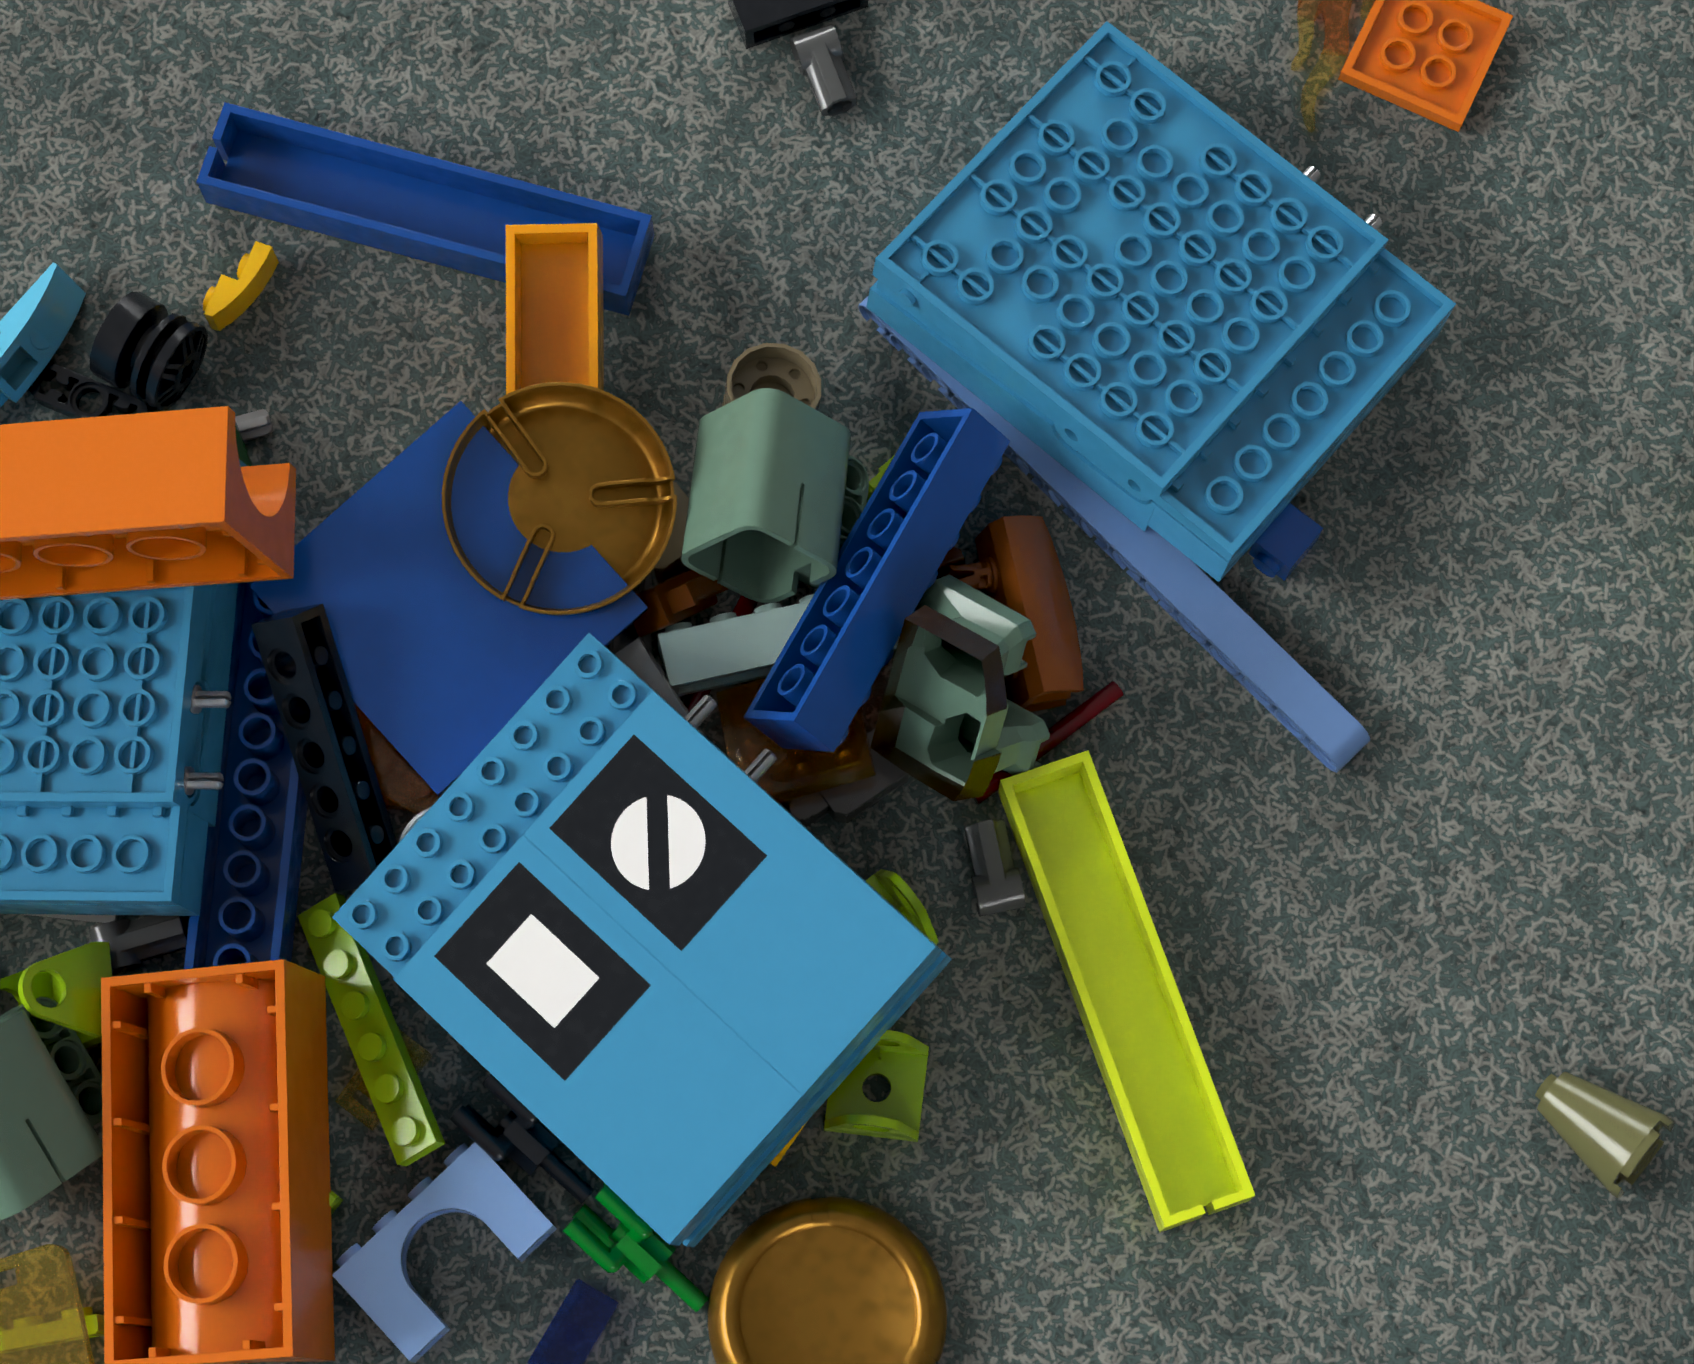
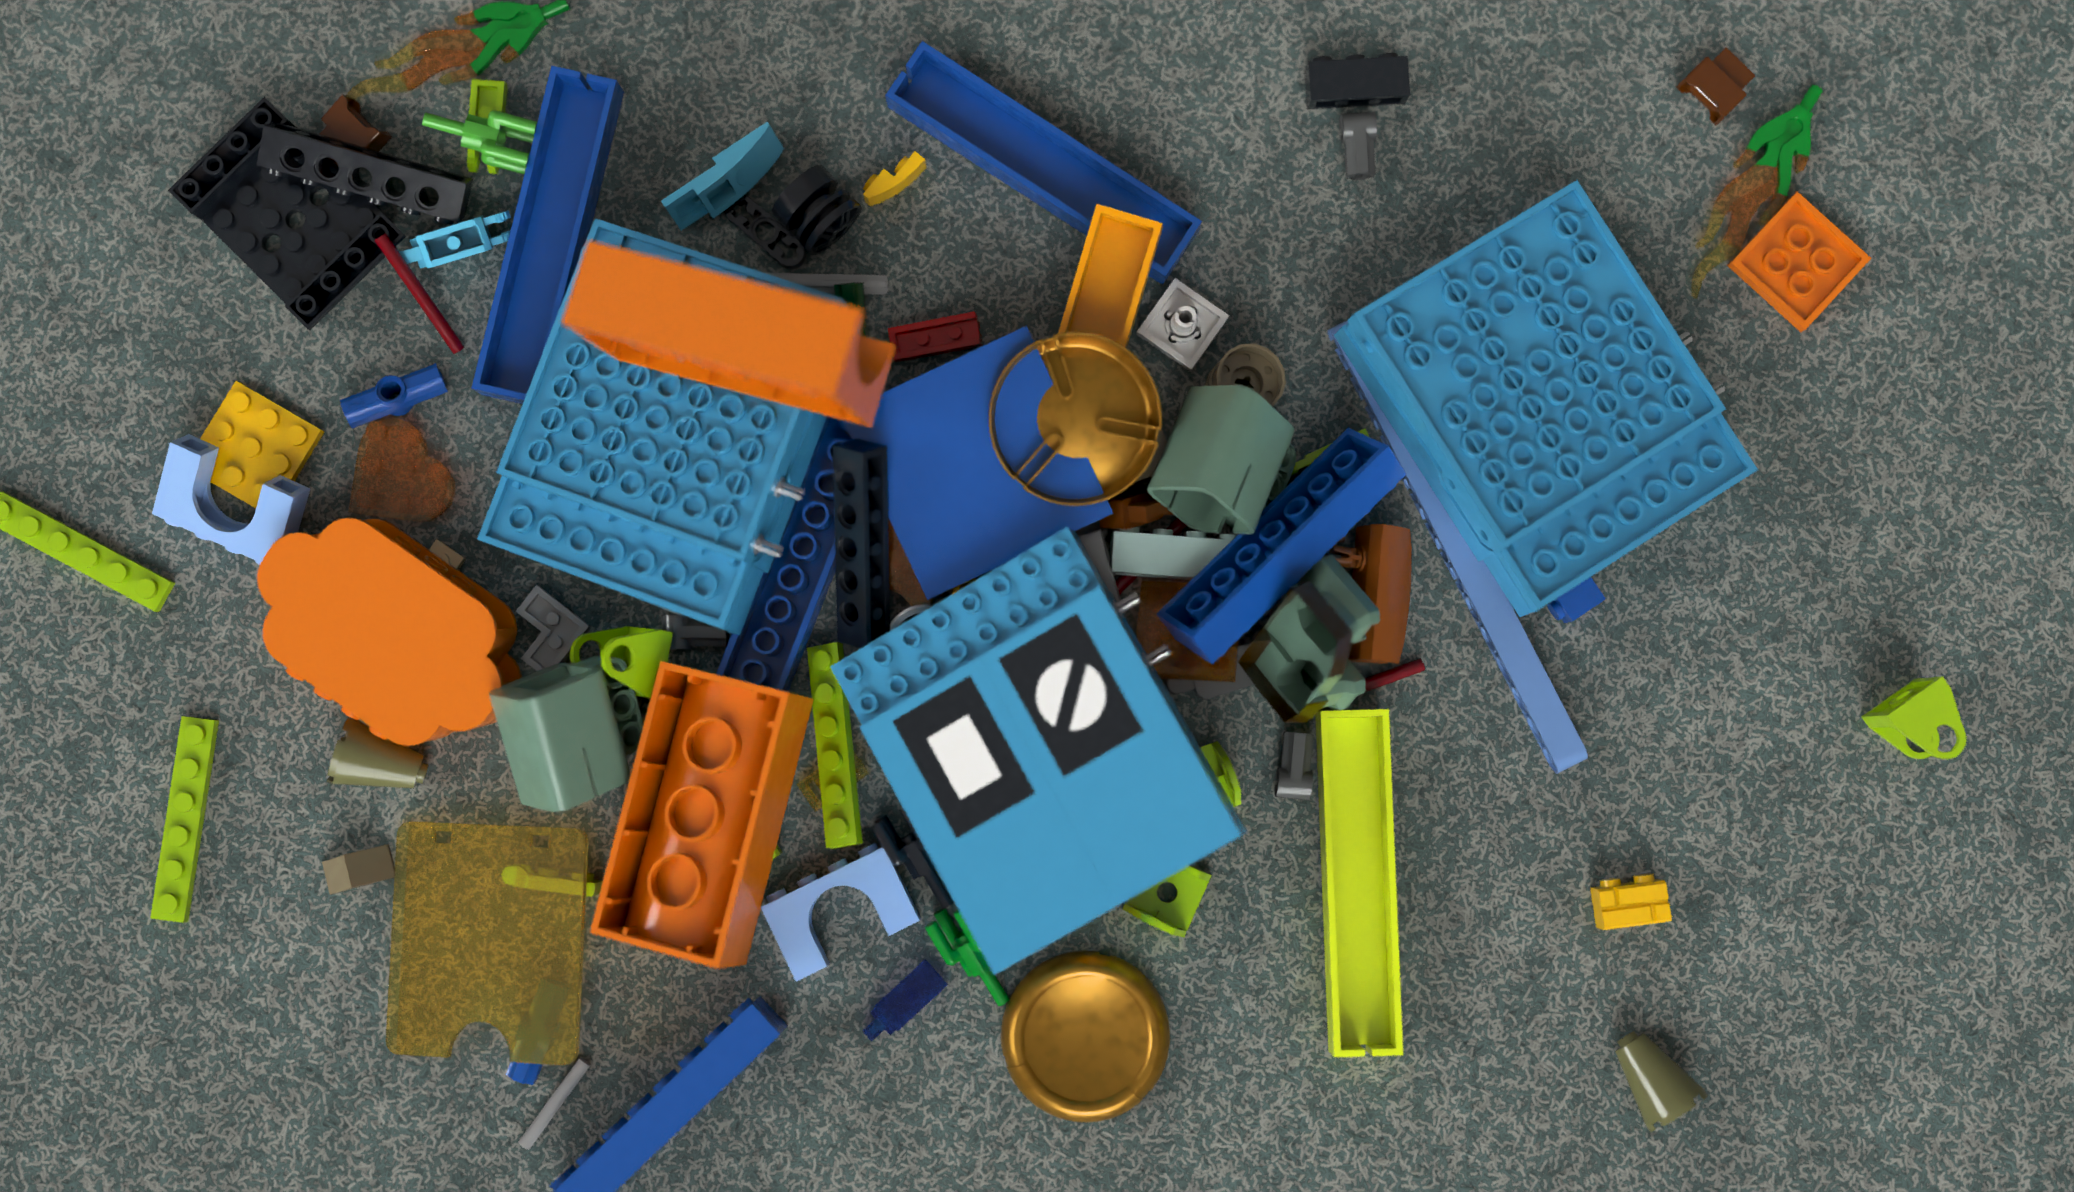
camera: 15 degrees right, 10 degrees up
(348, 466) = (935, 336): none -> red hinge
(660, 331) = (1181, 303): none -> white plate
(1490, 907) = (1631, 902): none -> yellow brick

